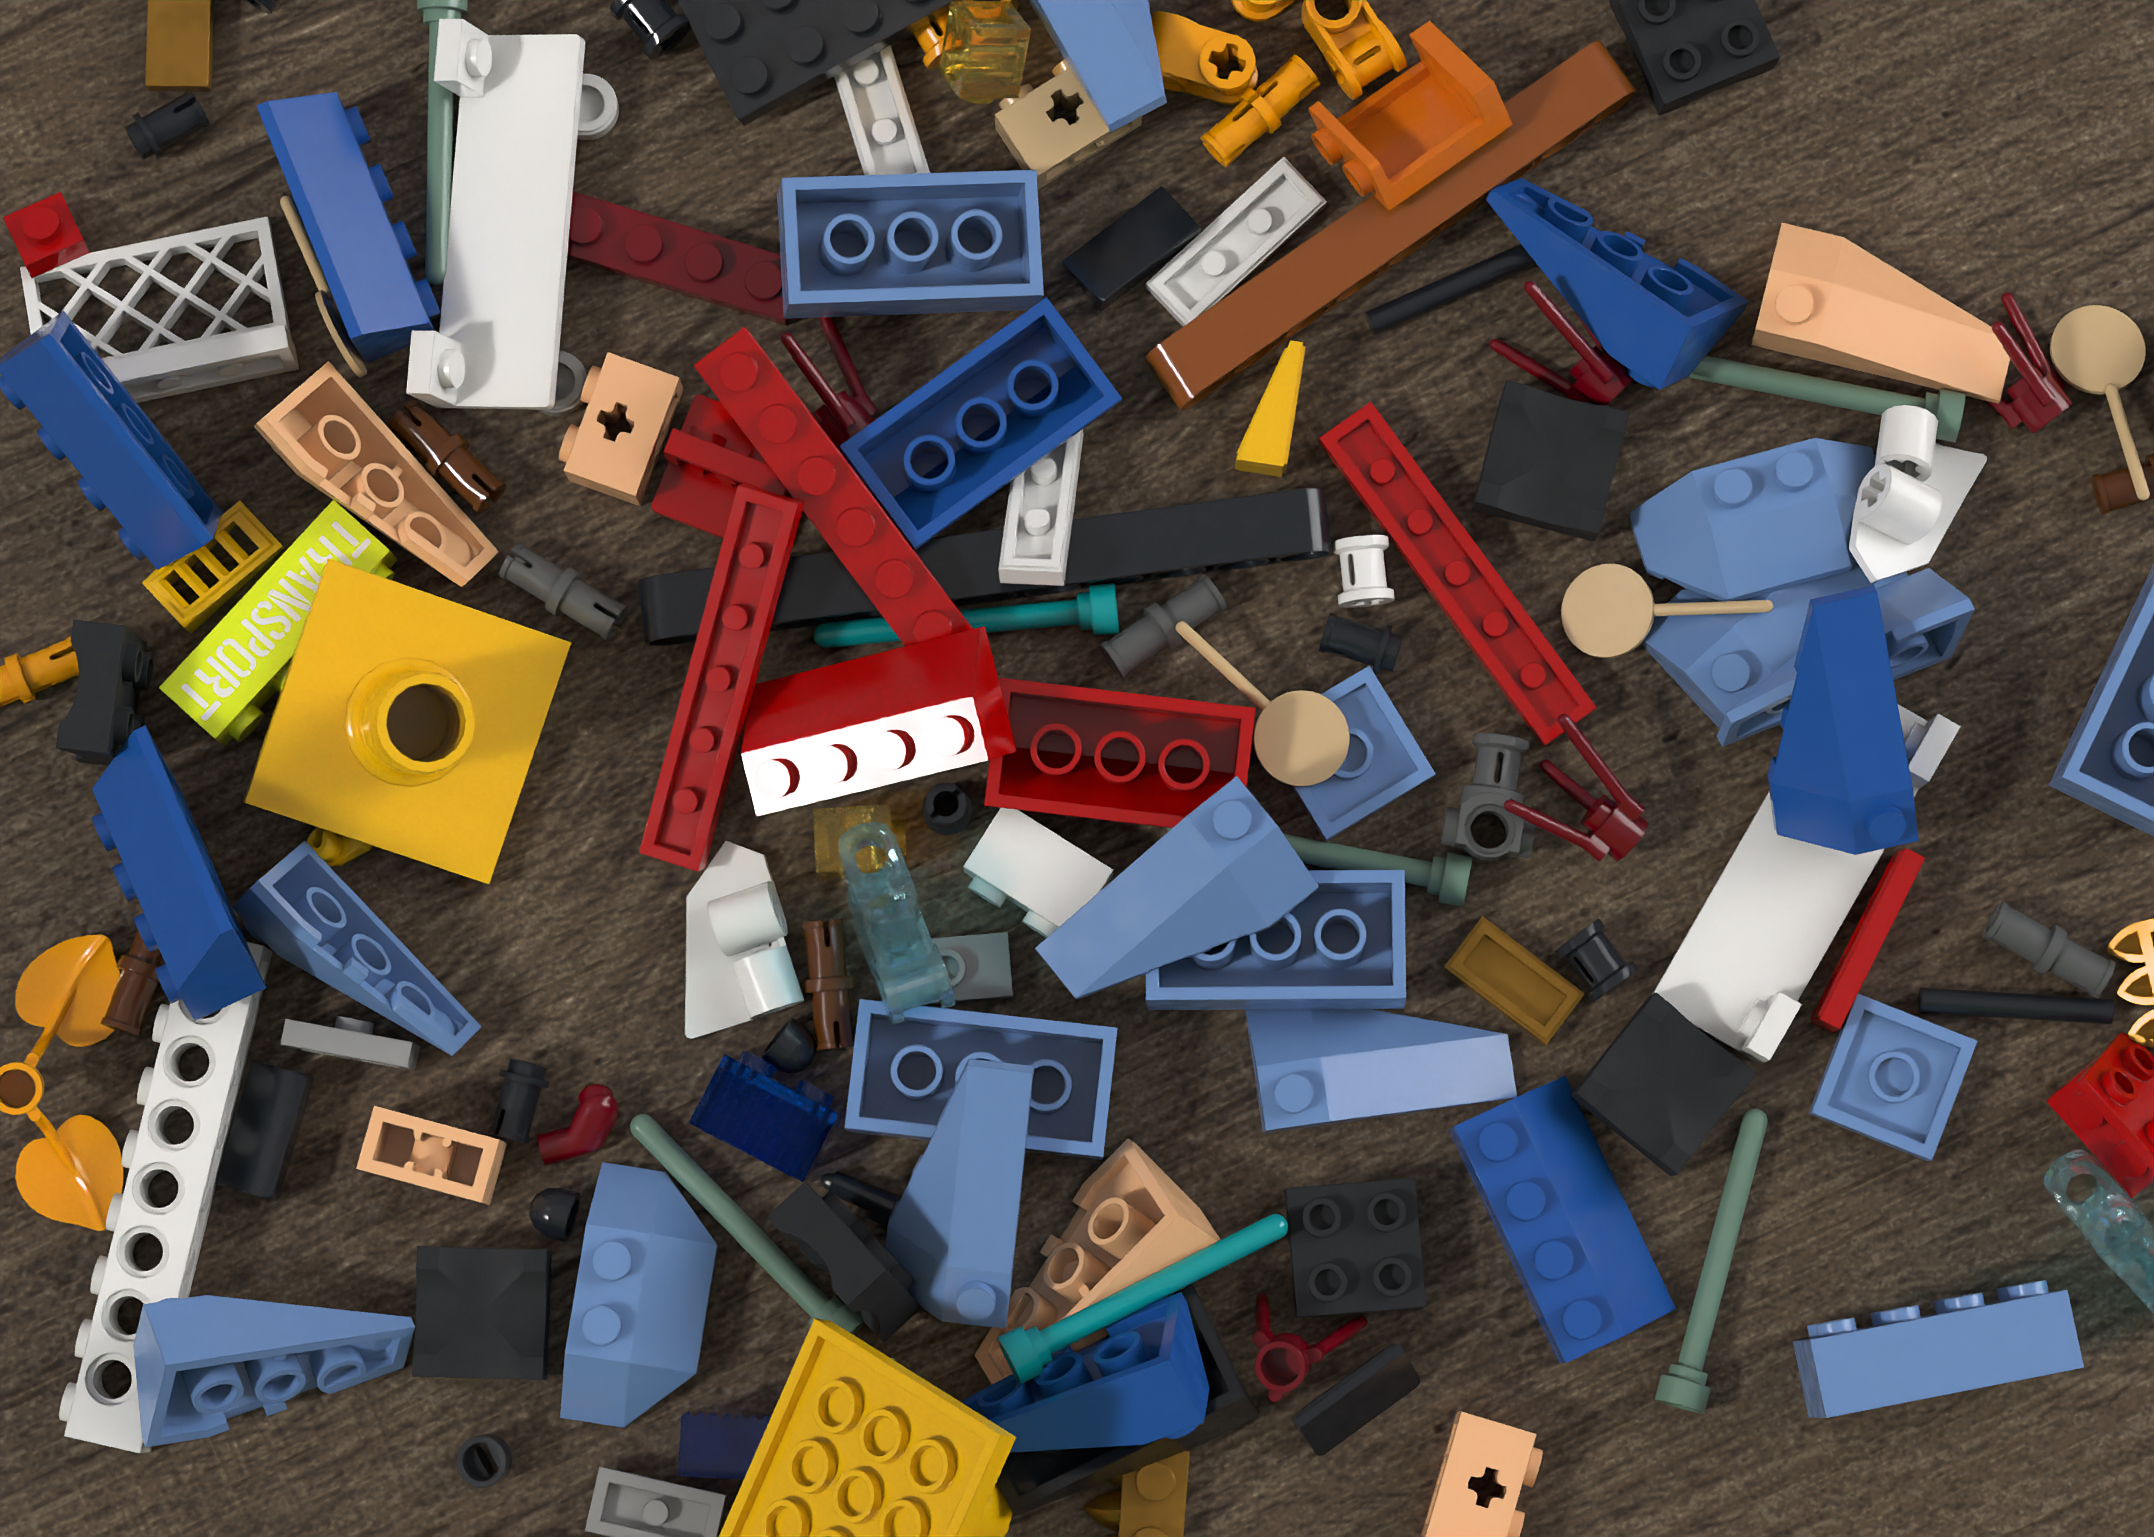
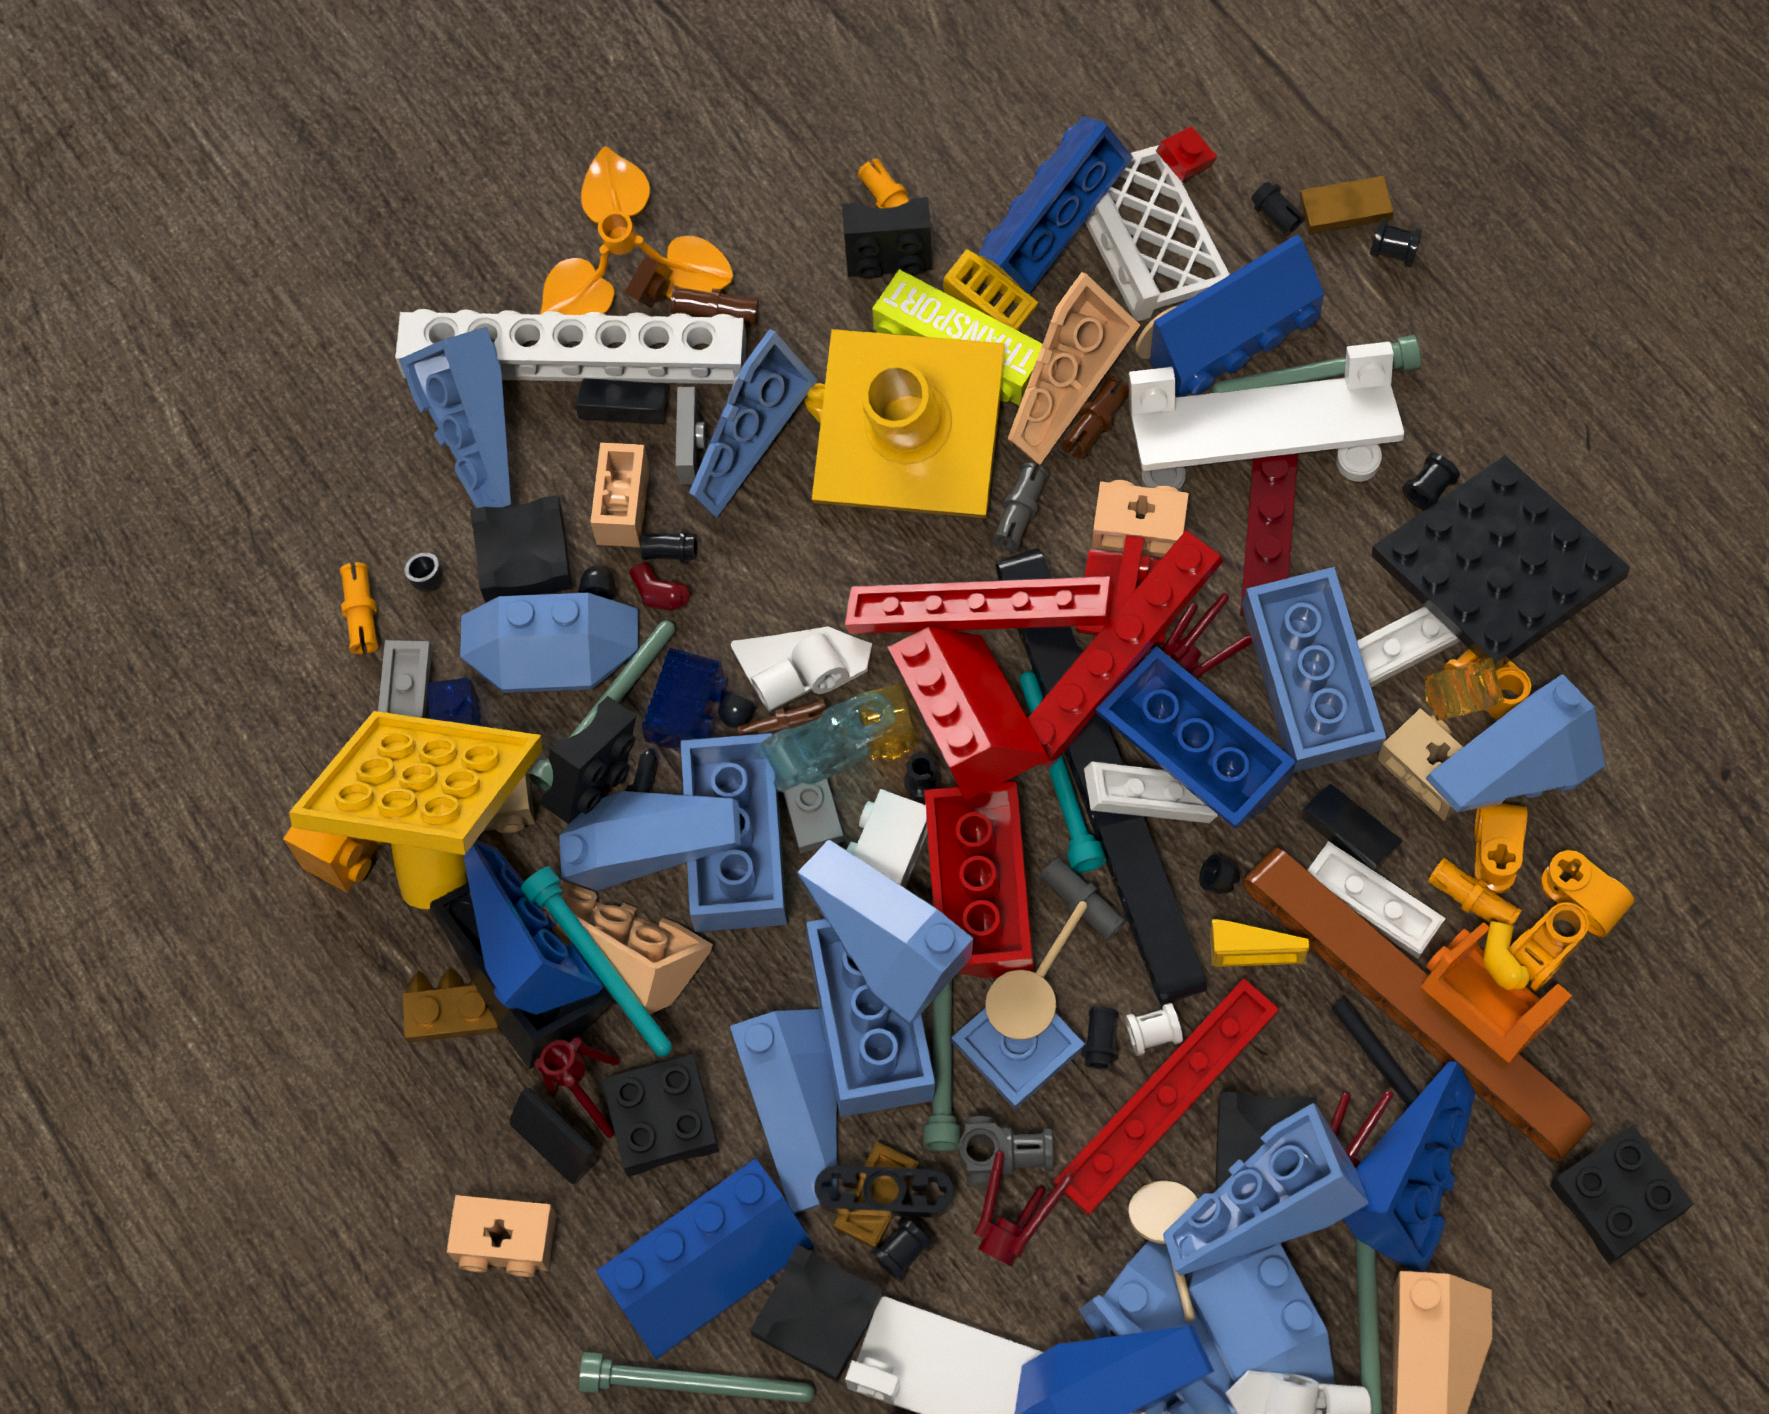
camera: 85 degrees right, 15 degrees down
(90, 1056) = (649, 282): none -> reddish brown plate
(173, 880) = (771, 298): blue slope -> none
(1172, 444) = (1219, 875): none -> black hinge
(1366, 101) = (1499, 960): none -> yellow arm
(1545, 924) = (847, 1202): none -> black beam
(1630, 454) = (1280, 1193): none -> medium blue wedge

